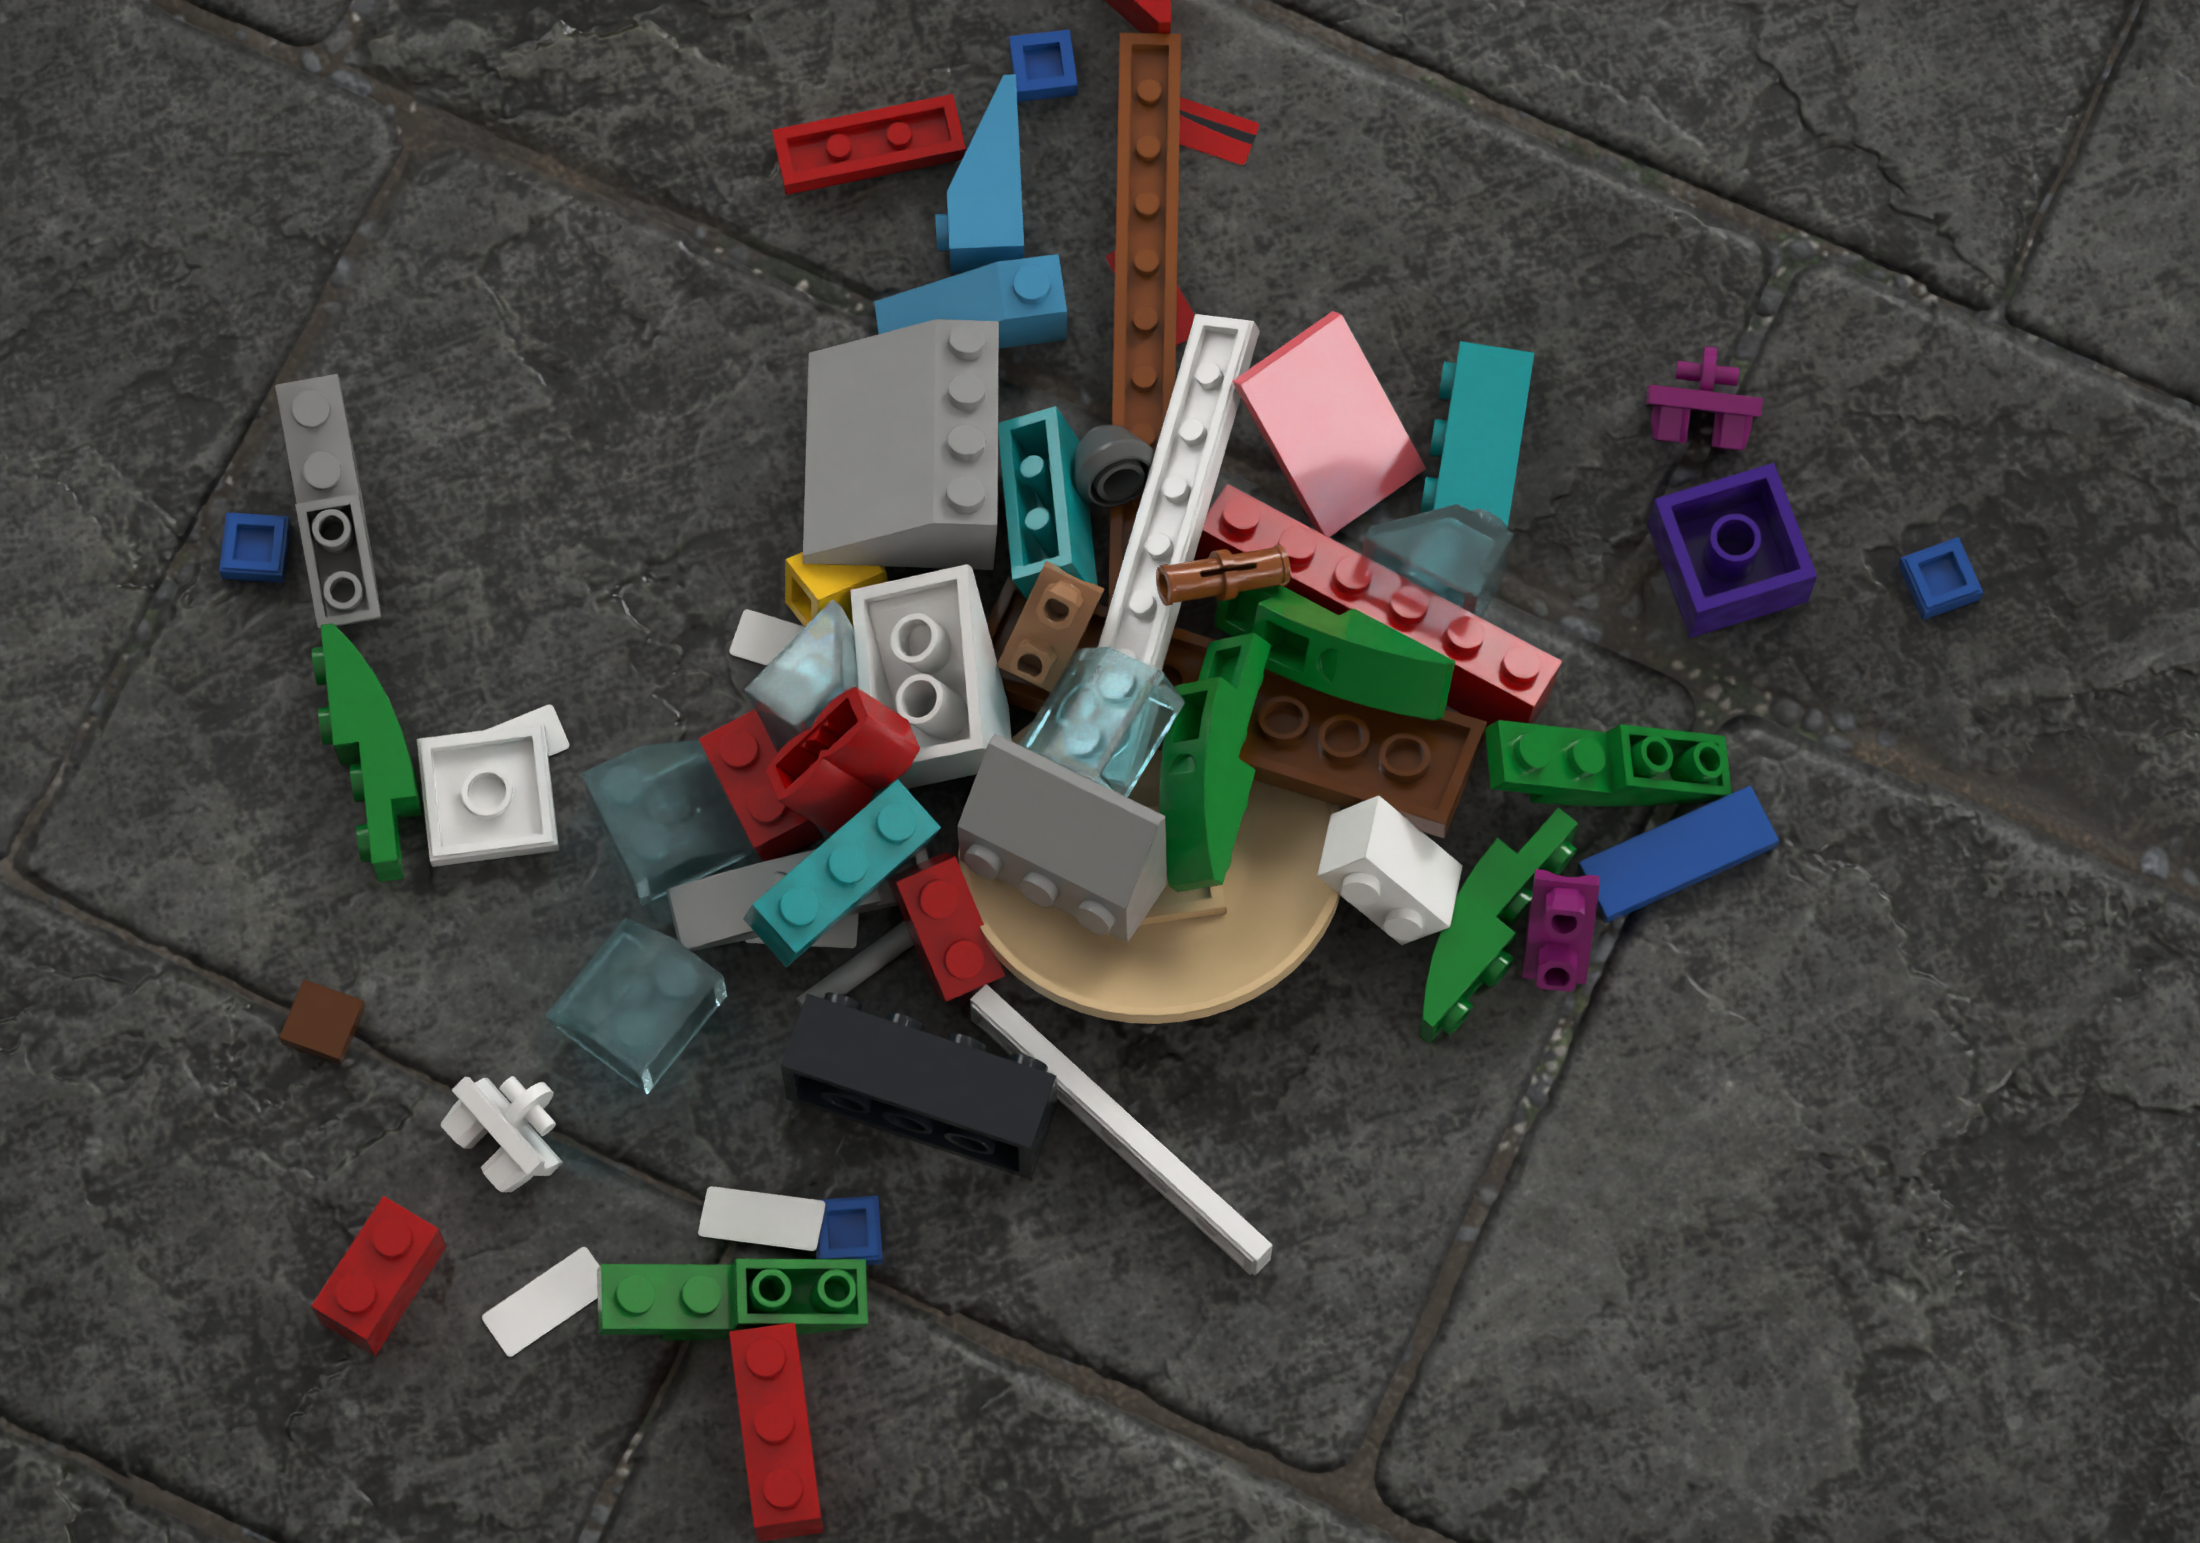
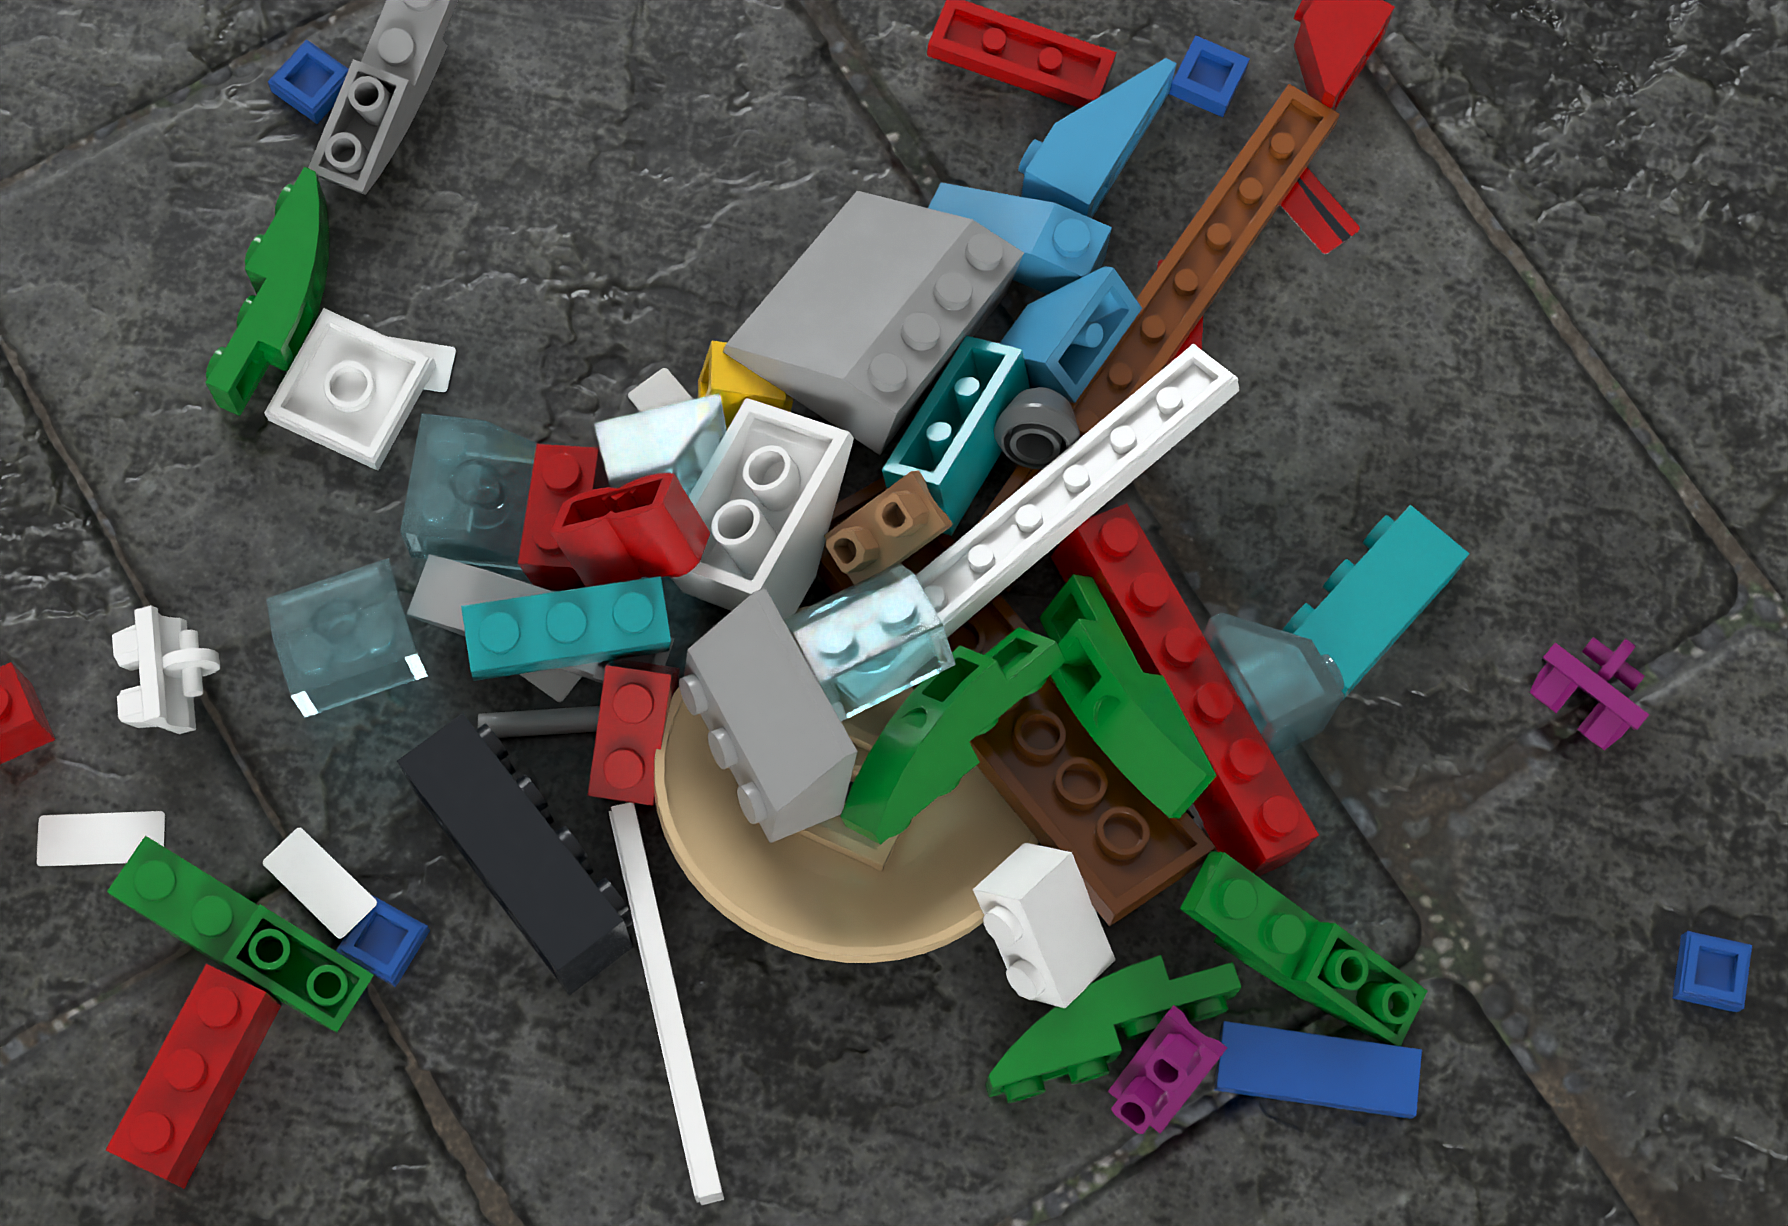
camera: 30 degrees right, 0 degrees up
(322, 1022) = (87, 490): reddish brown tile -> none
(1082, 365) = (1073, 331): none -> dark azure slope
(1223, 575) = (1064, 575): dark orange pin -> none
(1329, 424) = (1249, 506): tile -> none
(1731, 550) = (1537, 831): dark purple brick -> none

